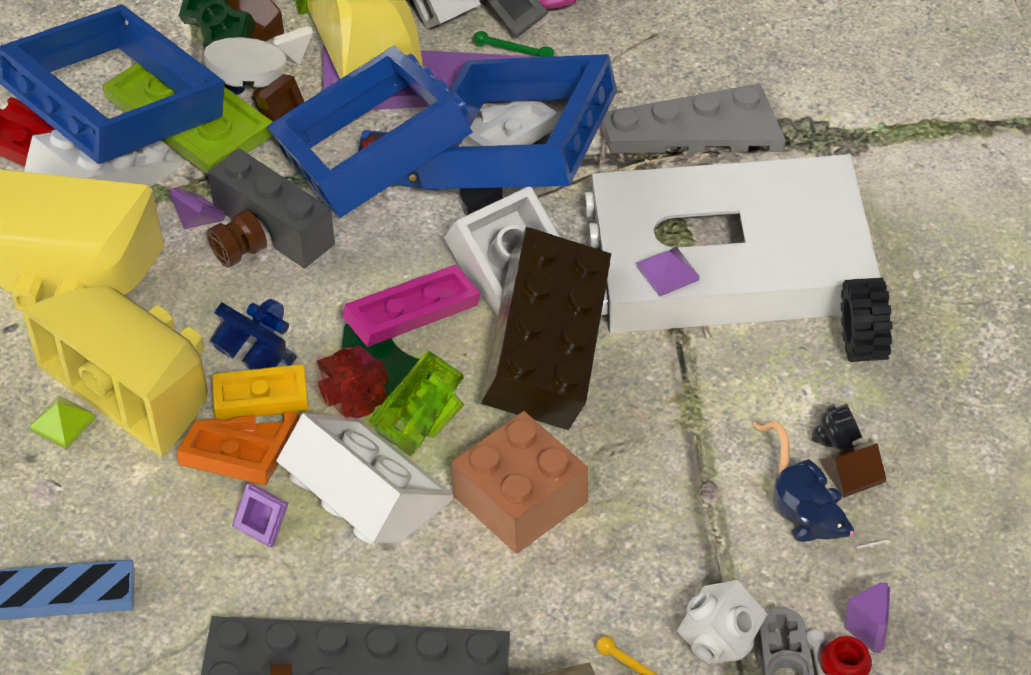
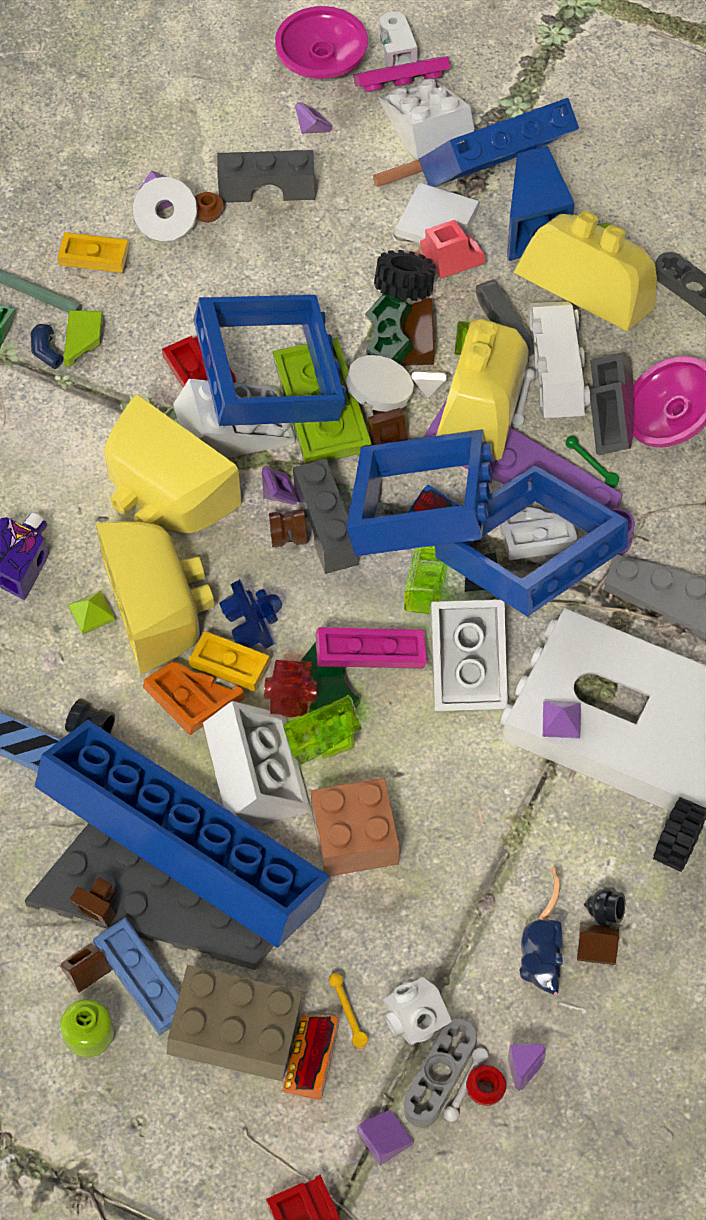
camera: 30 degrees right, 10 degrees up
(130, 525) = (83, 711): none -> black wheel
(260, 514) = (172, 754): medium lavender slope -> none
(329, 576) = (182, 832): none -> blue brick
(422, 224) = (418, 597): none -> clear neon green slope
(547, 328) = (446, 719): dark brown brick -> none

